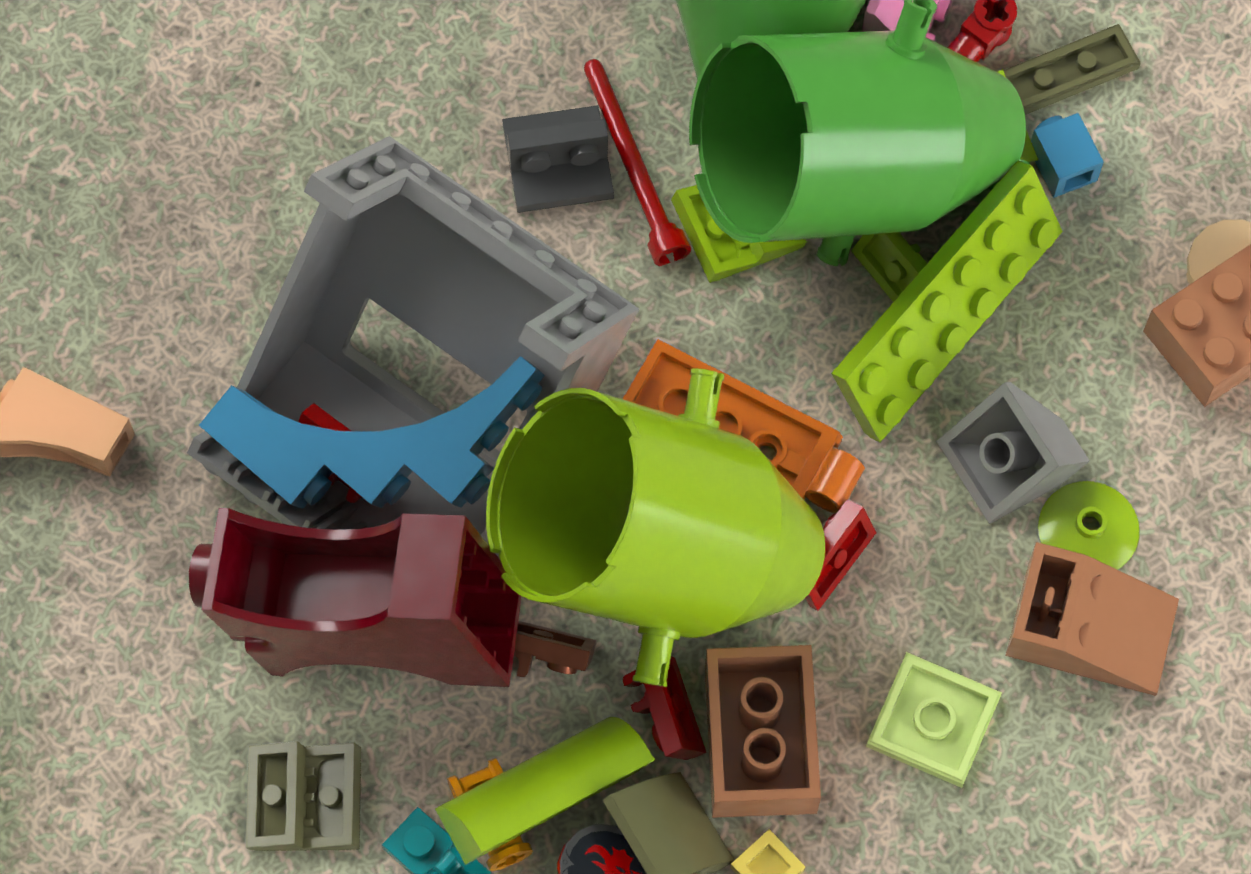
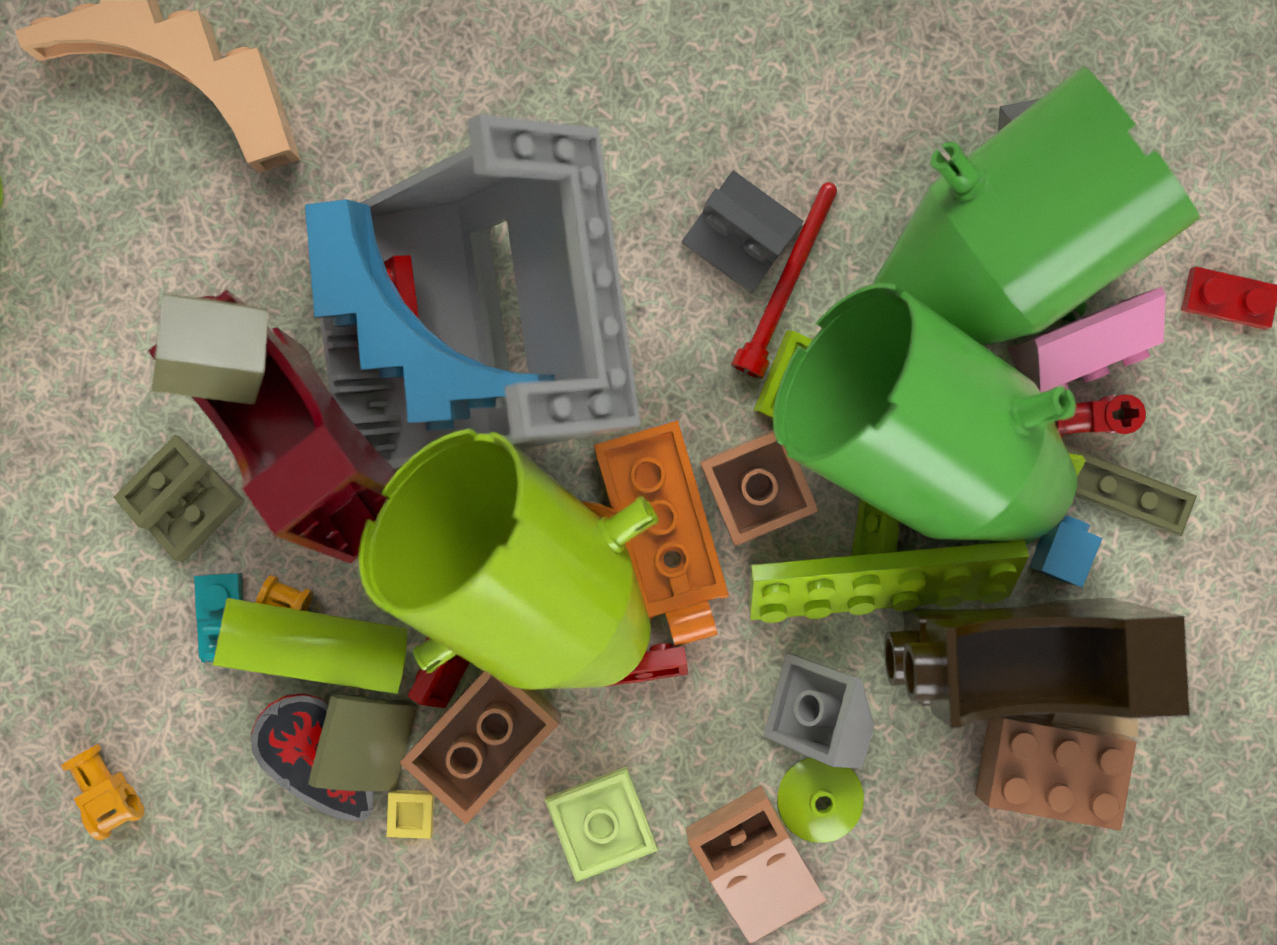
camera: 50 degrees right, 20 degrees up
(254, 563) = (210, 349): none -> slope
(773, 324) = (757, 487): none -> nougat brick
(1117, 230) = (1042, 660): none -> dark brown brick

